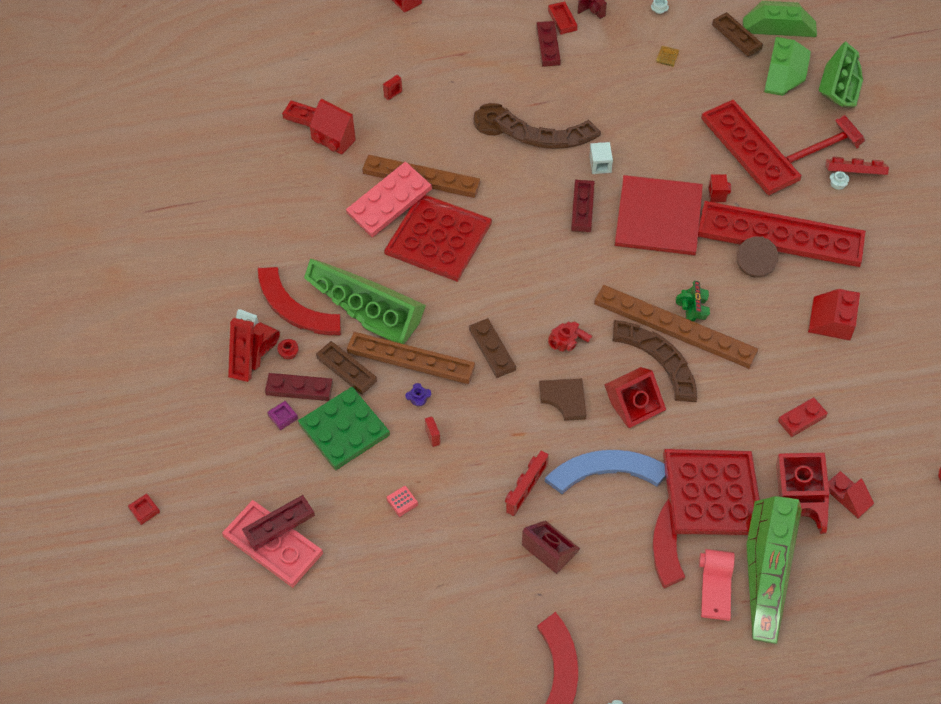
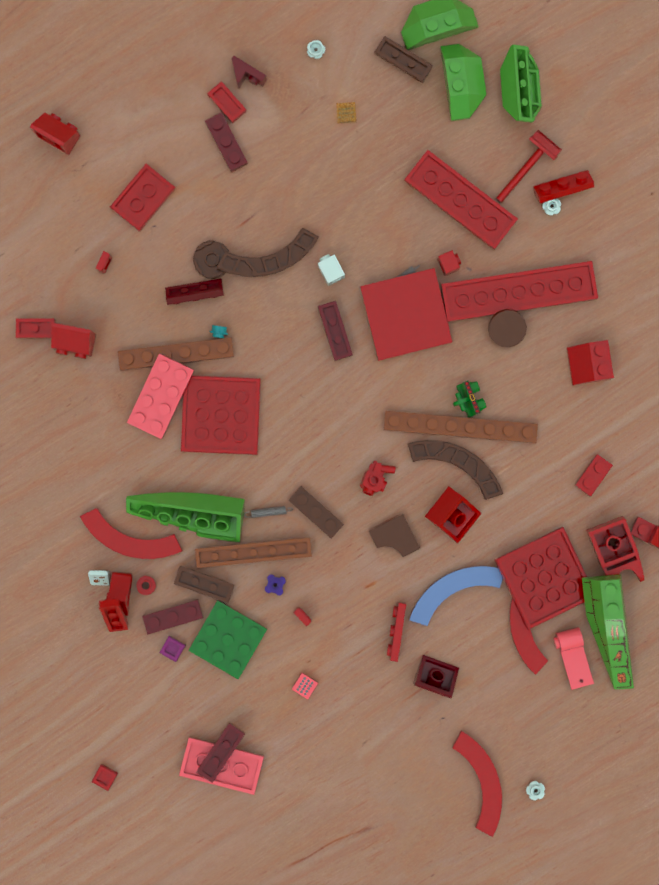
camera: 25 degrees left, 30 degrees up
(444, 330) = (268, 512): none -> light grey piece
(453, 57) = (142, 197): none -> red tile
(463, 134) = (194, 291): none -> dark red plate
(471, 169) = (219, 331): none -> teal plate

